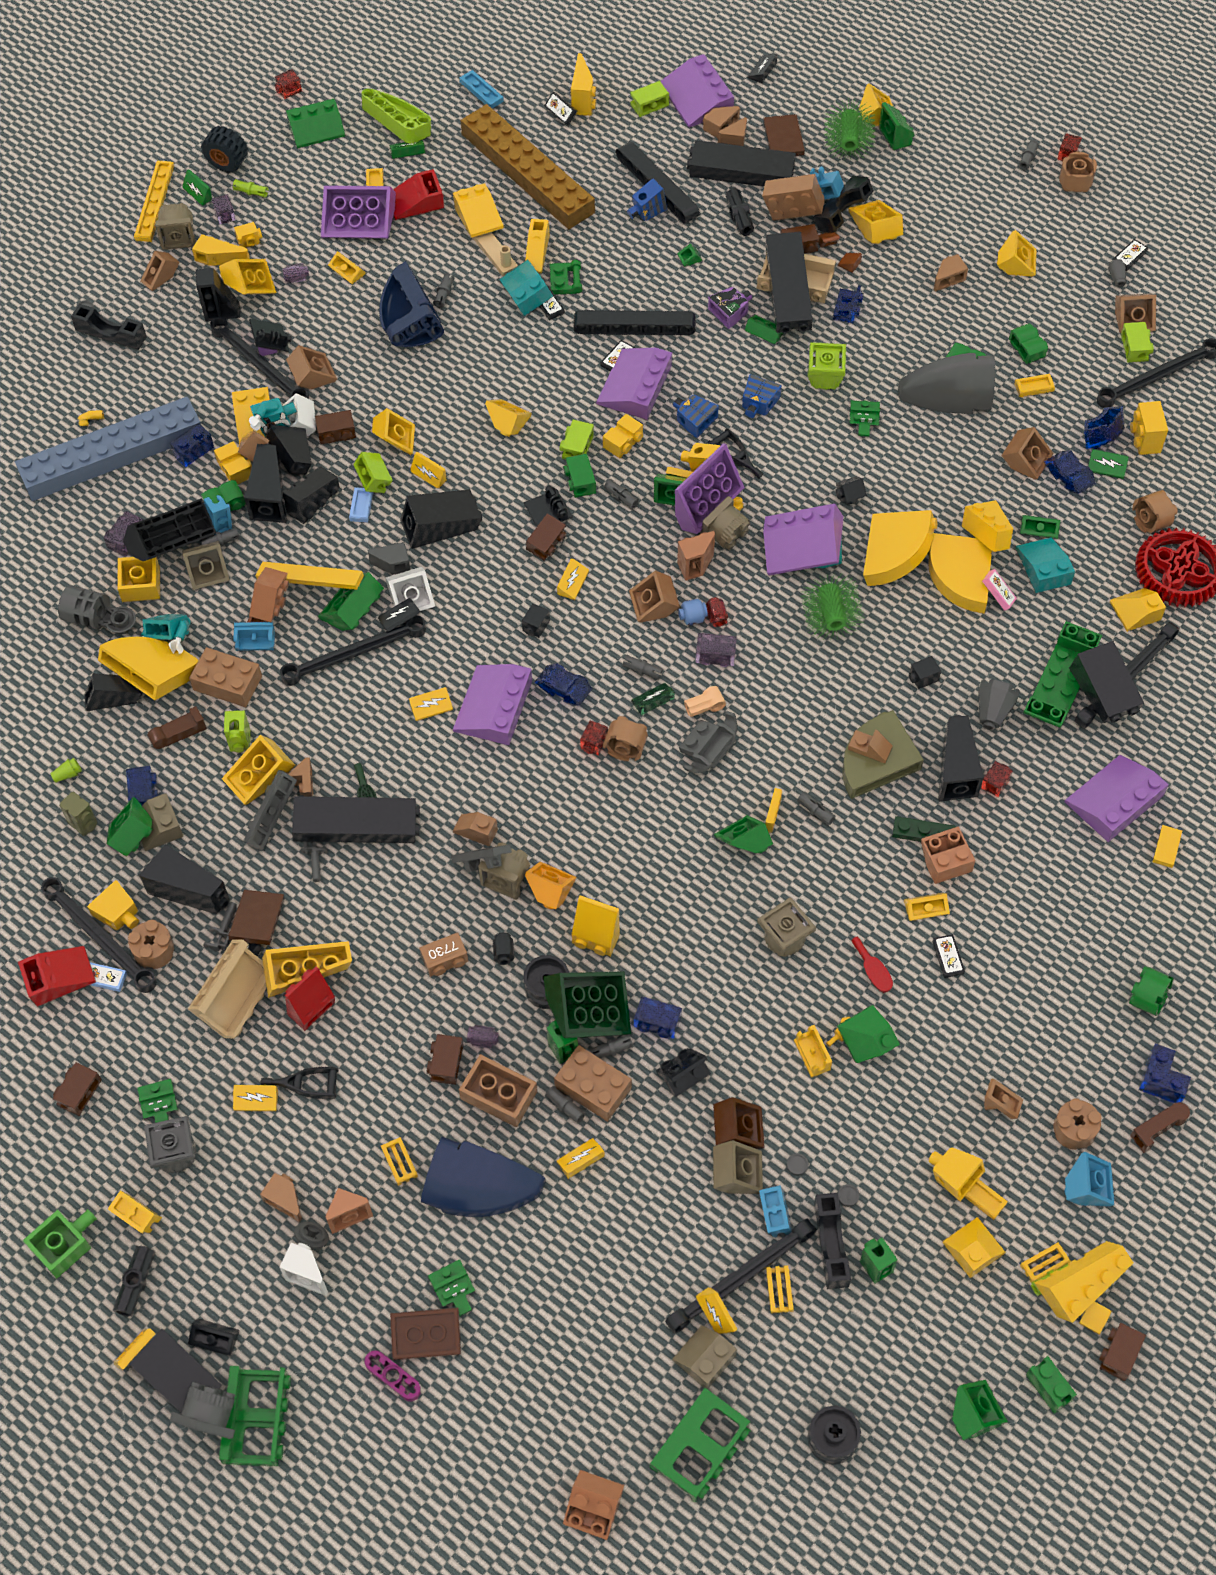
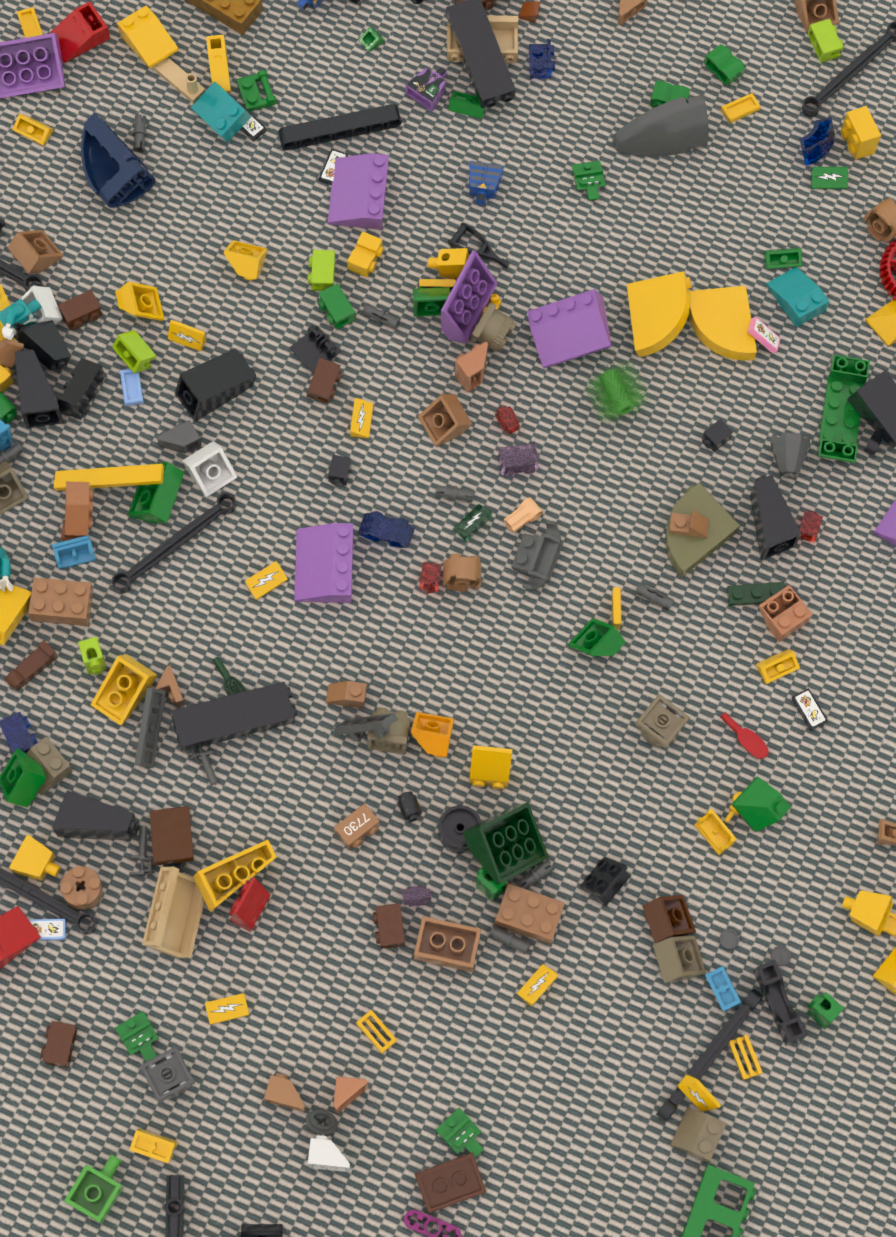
camera: 20 degrees left, 10 degrees up
(297, 1083) = (261, 983): black piece -> none
(398, 614) = (207, 496): black slope -> none
(477, 1181) = (454, 1033): dark blue panel -> none
(657, 1017) = (568, 837): clear blue brick -> none
(693, 612) = (486, 425): medium blue head -> none
(695, 414) = (428, 214): blue torso -> none
(821, 1440) = (839, 1170): black wheel -> none
(826, 365) = (541, 134): lime piece -> none
(850, 490) = (599, 262): black brick -> none
(988, 525) = (739, 272): yellow wedge -> none
(1027, 453) = (753, 183): medium nougat slope -> none
(1070, 471) = (795, 192): clear blue brick -> none

